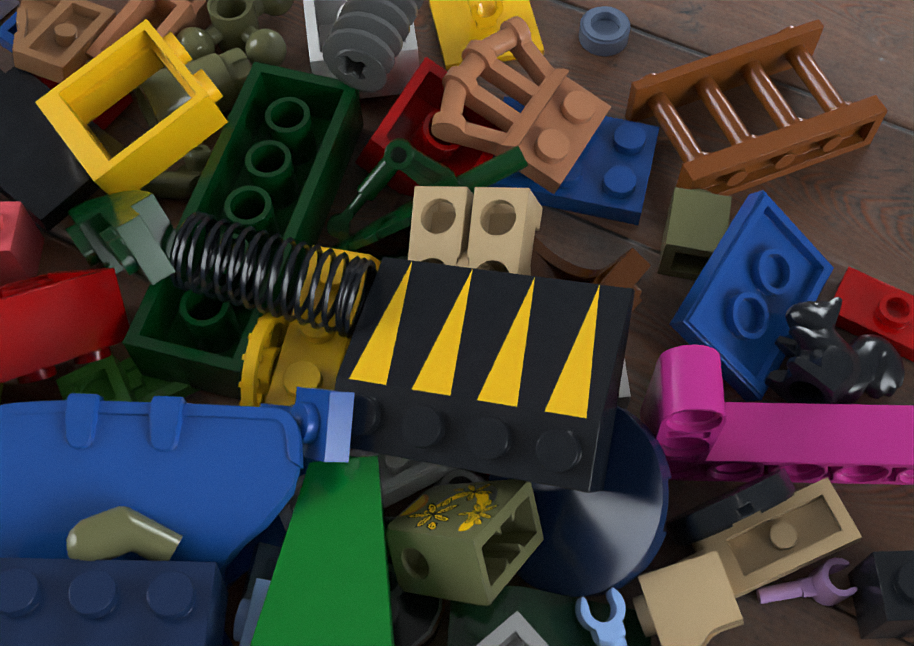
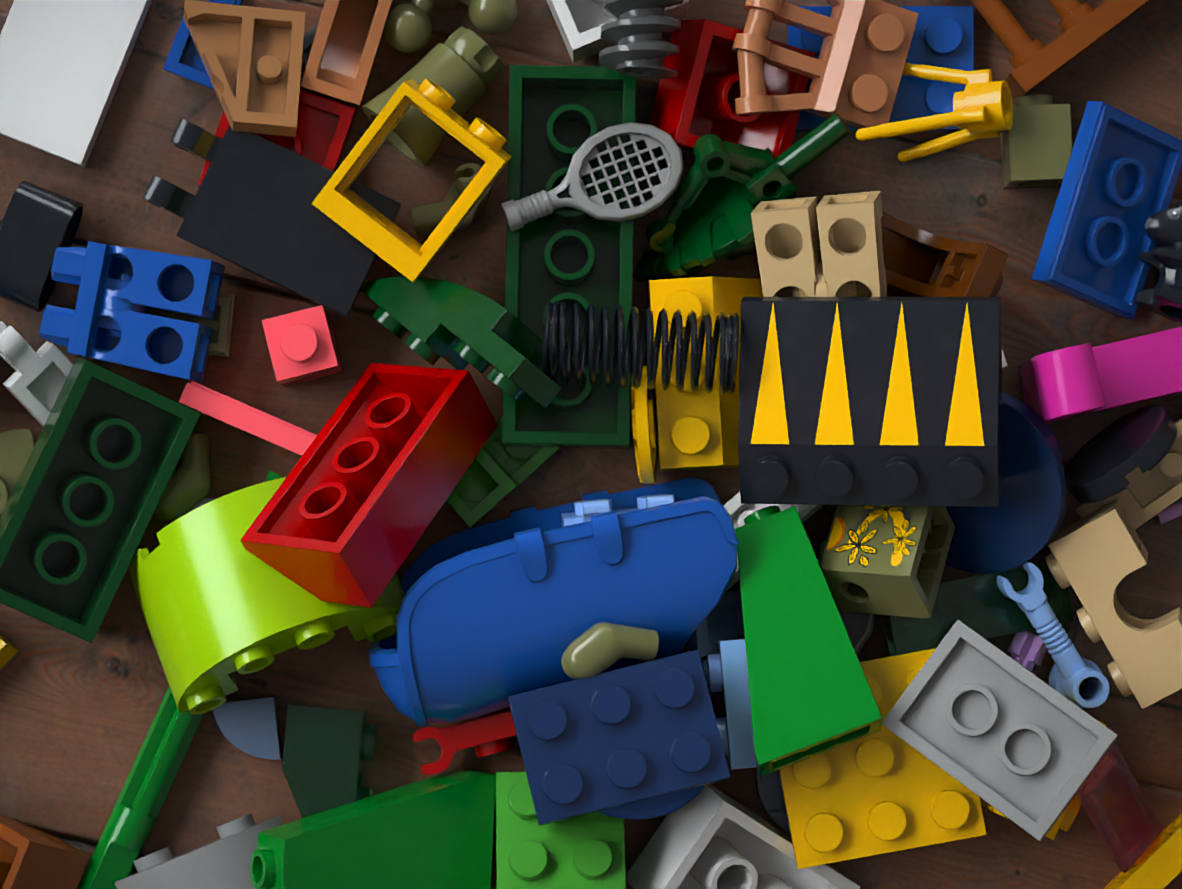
camera: 15 degrees left, 25 degrees up
(267, 151) = (544, 202): none -> light grey piece
(323, 421) = (735, 483): blue plate -> none
(647, 173) = (979, 110): none -> yellow plant

